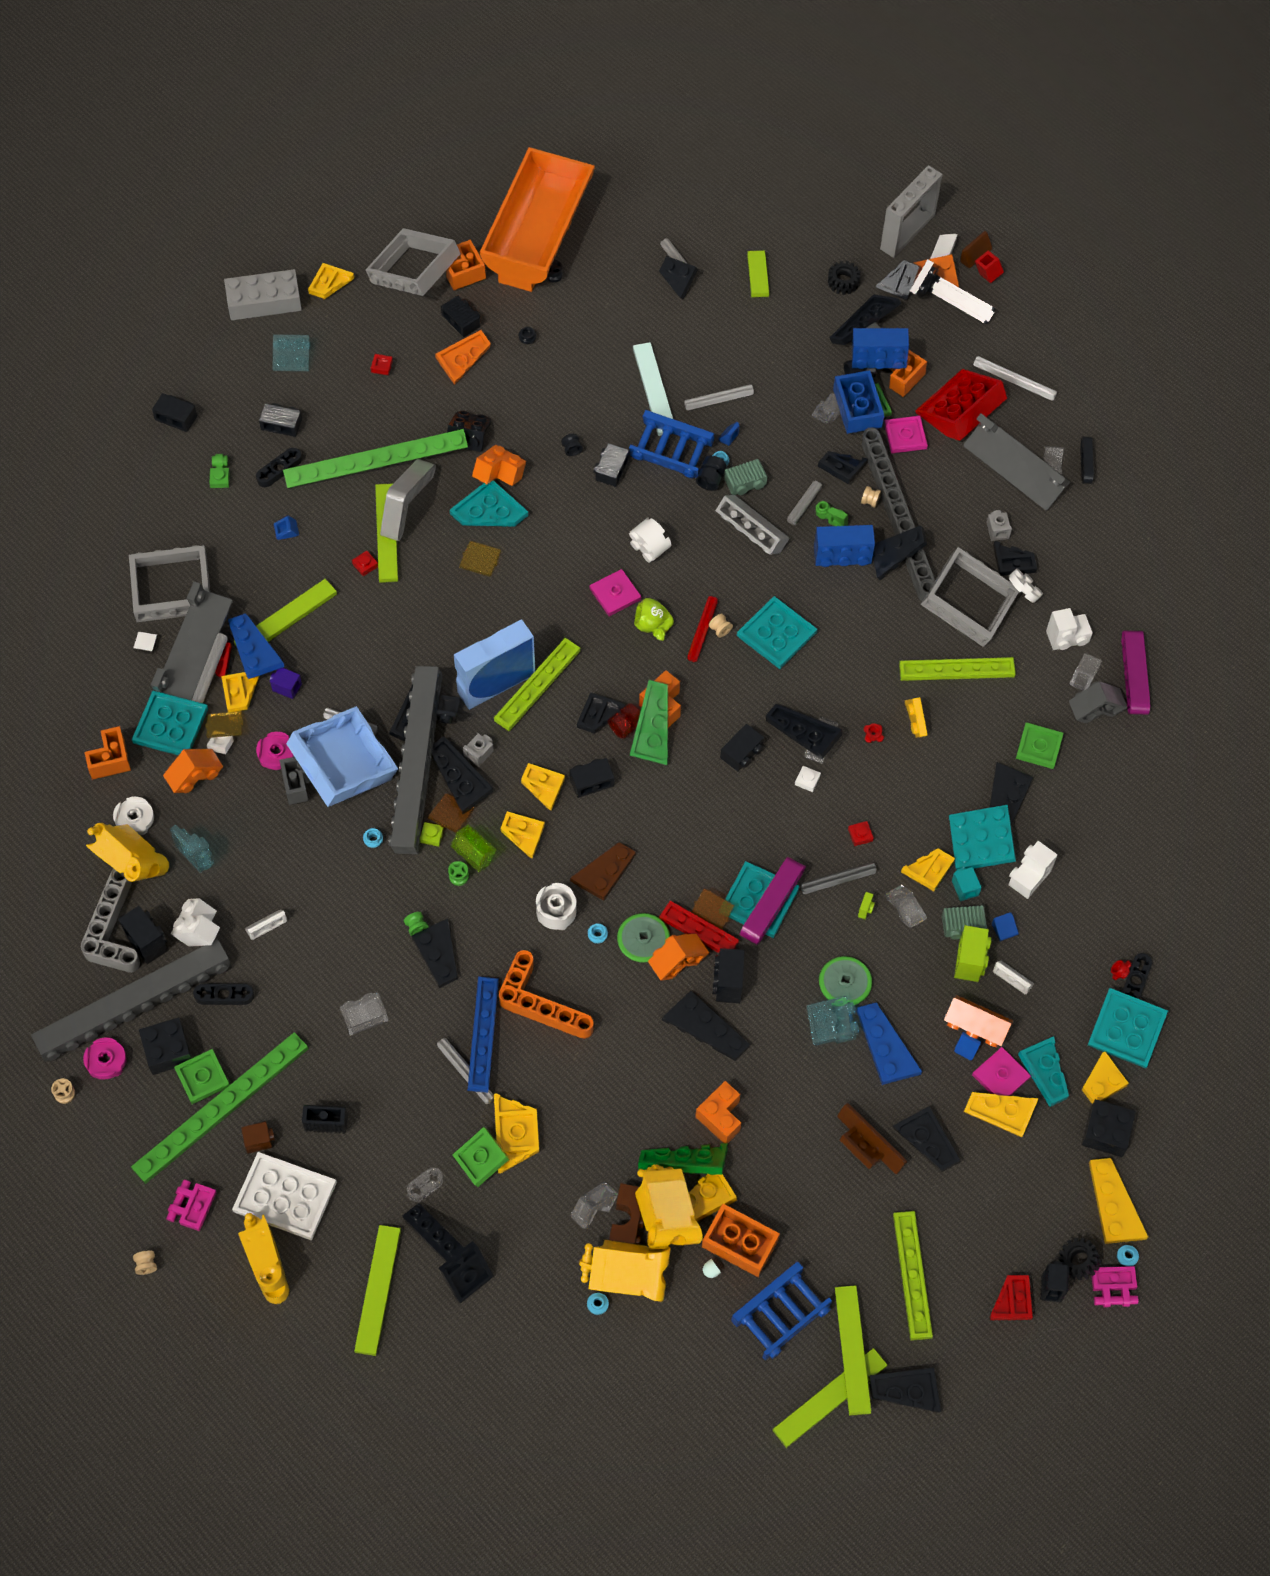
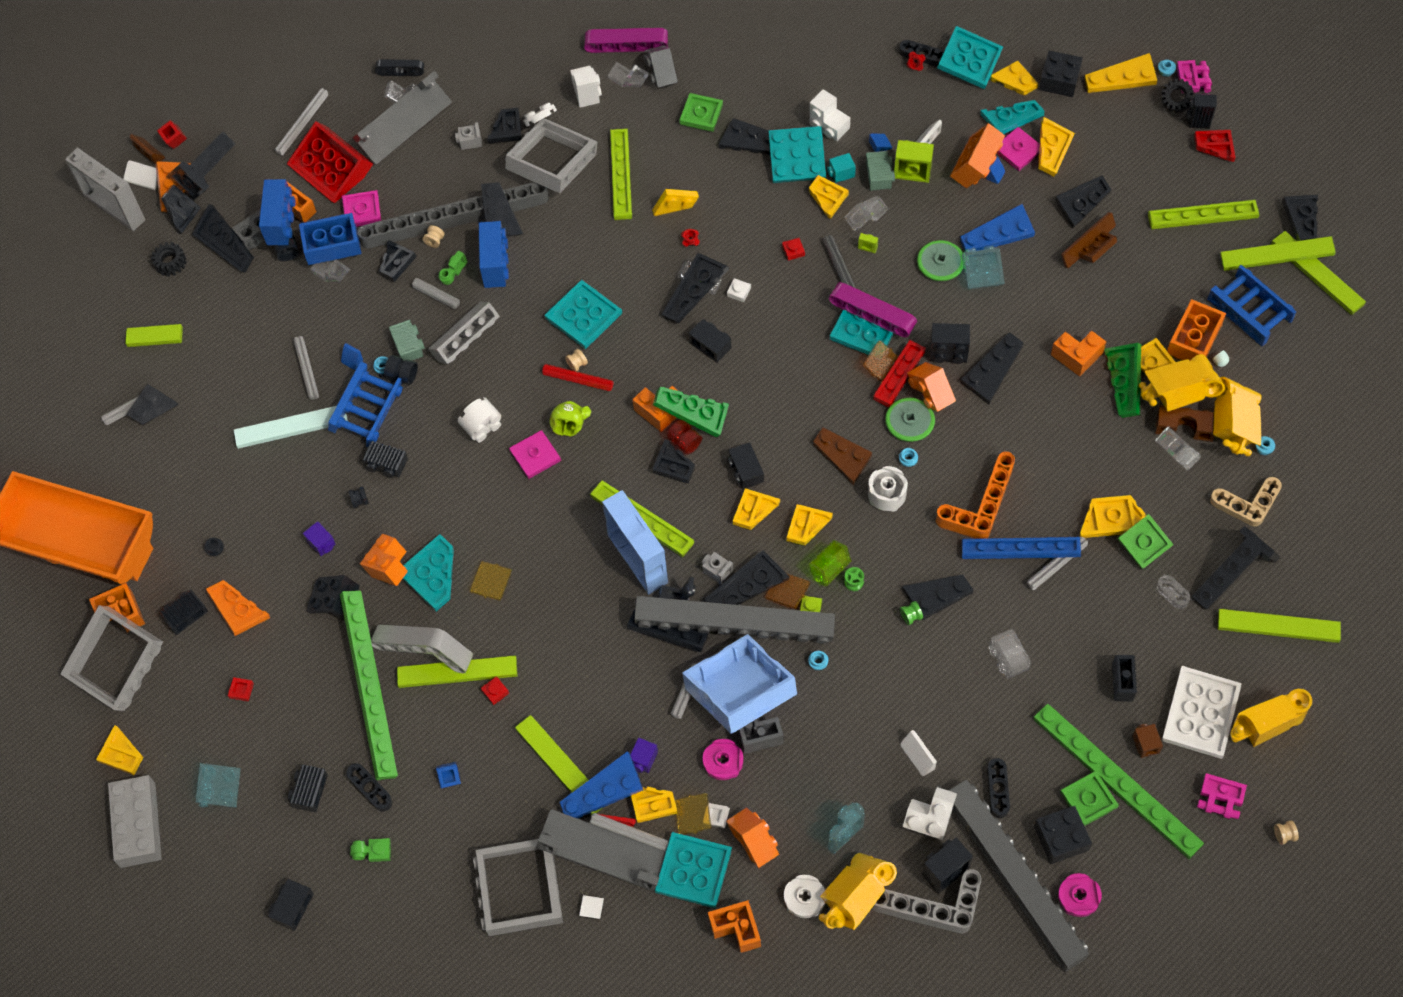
camera: 85 degrees left, 0 degrees up
(60, 1086) = (1122, 928): tan wheel -> none
(522, 1283) = (1253, 508): none -> tan beam
(528, 415) = (319, 539): none -> dark purple brick

